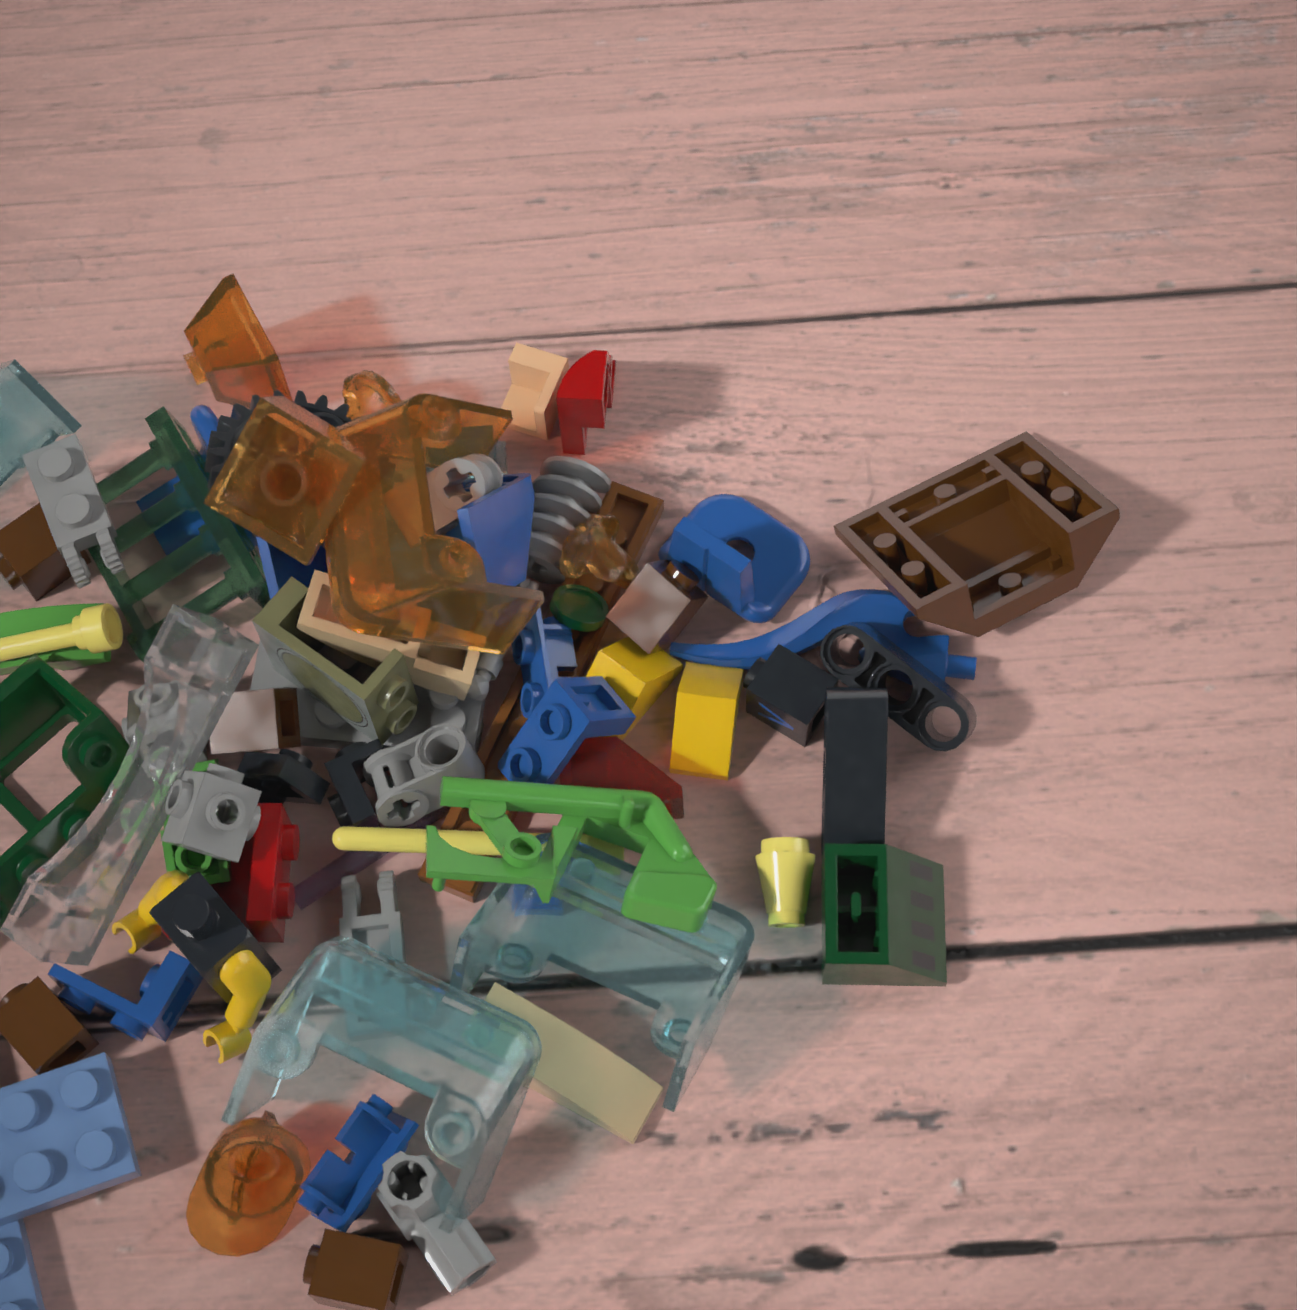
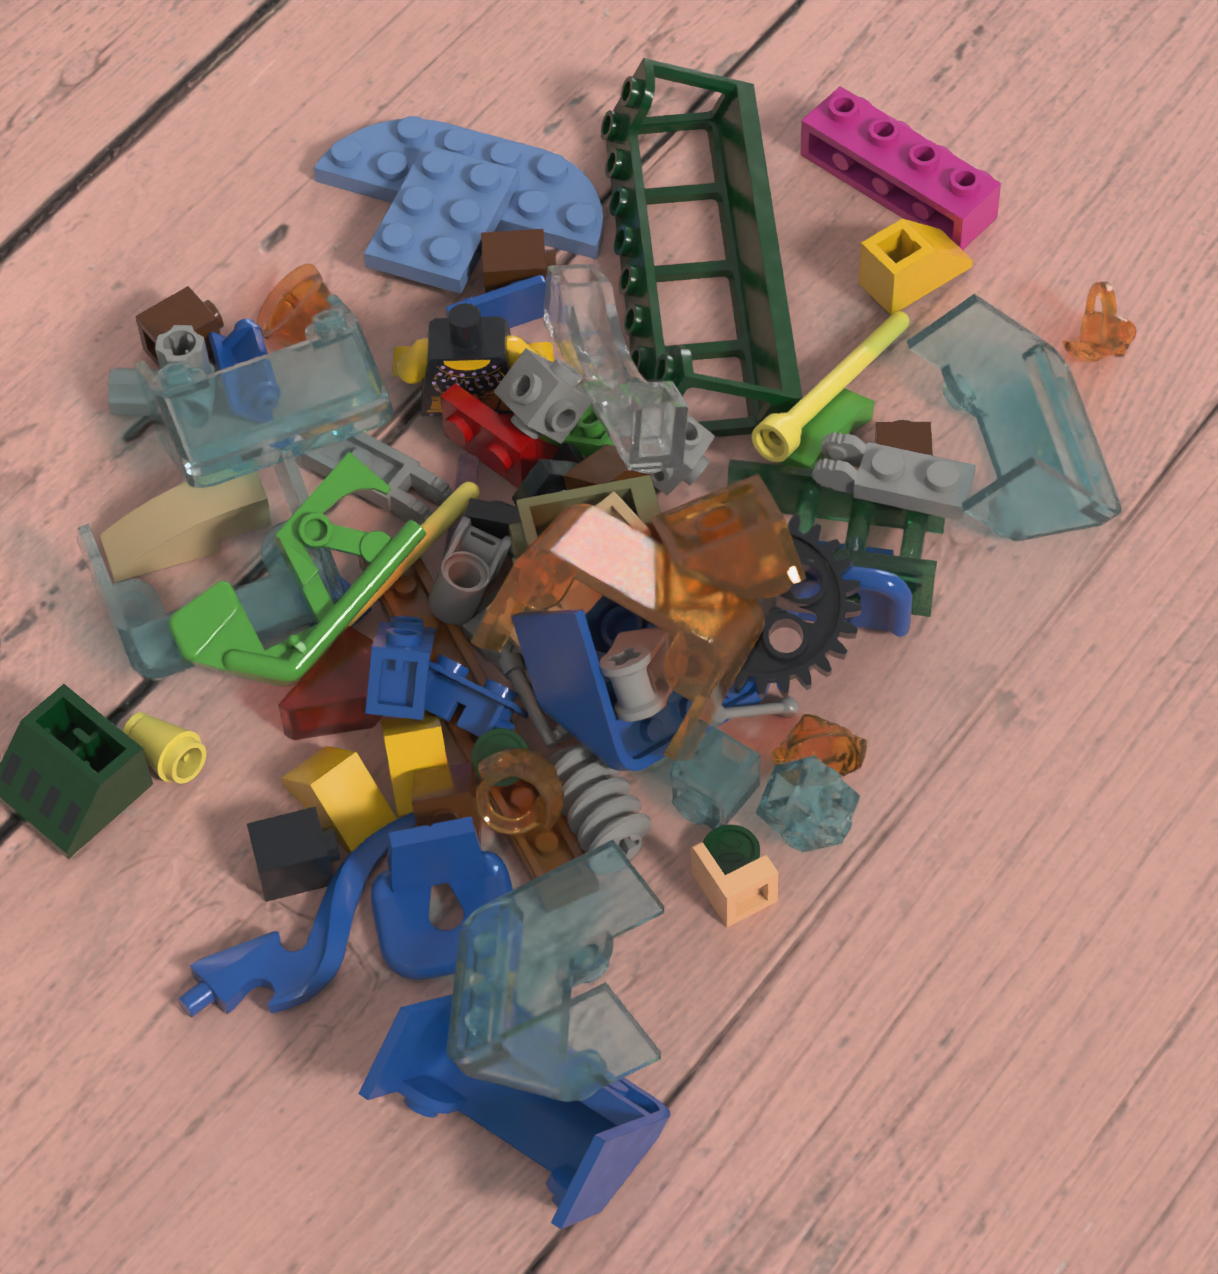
camera: 130 degrees right, 10 degrees down
(232, 349) = (949, 685): clear orange slope -> none
(431, 351) = (808, 804): none -> clear light blue brick
(522, 408) = (732, 847): none -> dark green piece
(584, 399) = (667, 870): red slope -> none
(782, 417) = (517, 973): none -> clear light blue windscreen
(811, 365) = (583, 1143): none -> blue windscreen
(854, 766) = (181, 828): black beam -> none
(927, 691) = (216, 920): black beam -> none
(985, 537) = (276, 1087): reddish brown slope -> none

